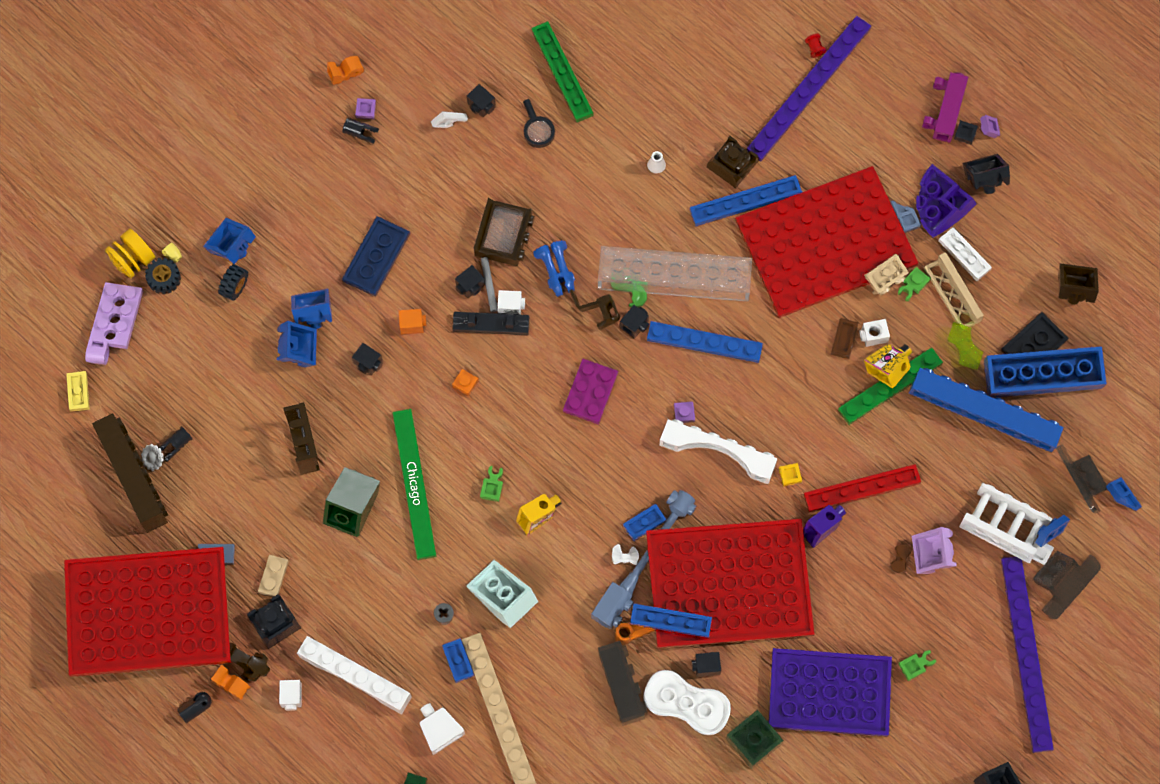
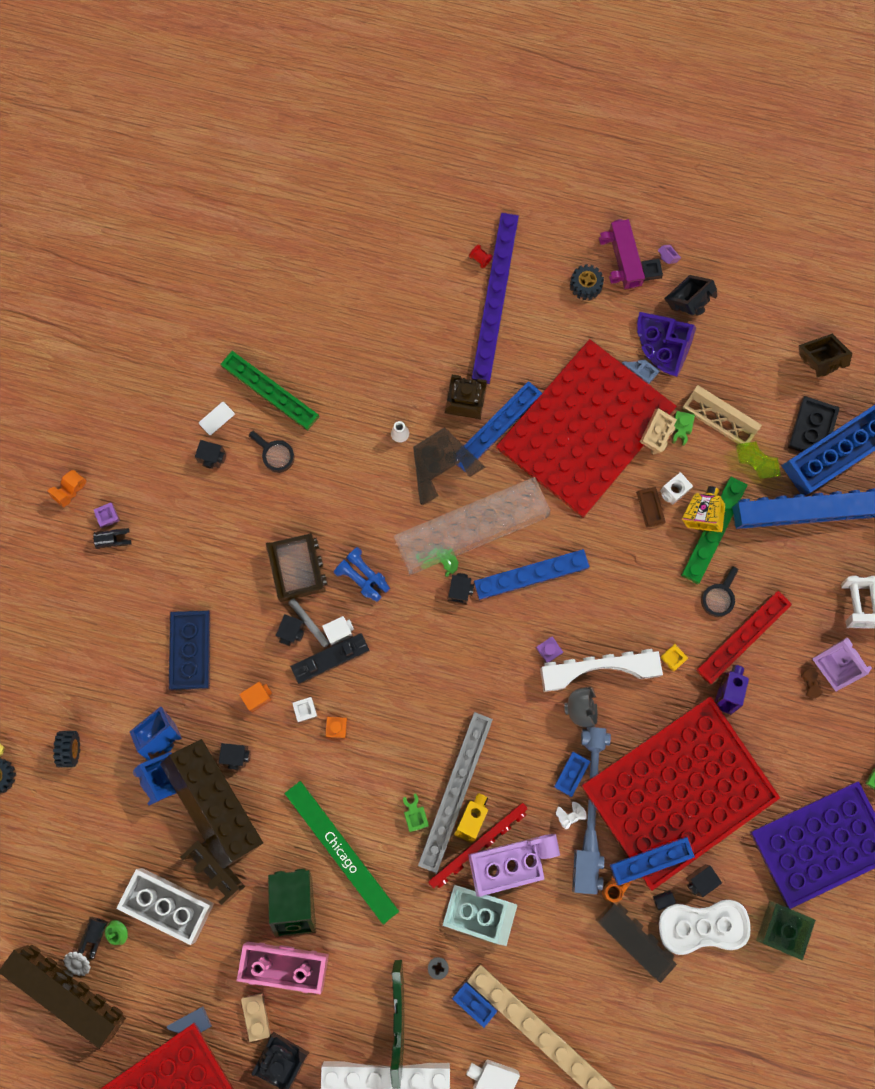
camera: 30 degrees left, 5 degrees up
(196, 450) = (116, 932): none -> bright green hat
(230, 240) = (42, 711): blue brick -> none
(248, 448) = (165, 906): none -> white brick
(317, 546) = (282, 967): none -> bright pink piece
(328, 385) = (211, 803): none -> dark brown brick
(375, 656) = (398, 1025): none -> dark green tile
(446, 119) = (187, 487): white tile -> none
(446, 353) = (304, 709): none -> white plate
(503, 73) = (216, 418): none -> white sticker
(524, 539) = (486, 840): none -> red plate
(537, 484) = (455, 792): none -> light grey plate
(581, 565) = (538, 847): none -> lavender hinge
(590, 391) = (455, 675): magenta plate -> none
(605, 303) = (425, 588): dark brown piece -> none
(665, 663) = (664, 900): none -> black hinge
(677, 199) = (438, 455): none -> clear smoke wing
(684, 471) = (582, 707): none -> dark grey cylinder
(860, 446) = (719, 599): none -> piece
(899, 108) = (588, 276): none -> black wheel
(964, 254) = (711, 378): white plate -> none

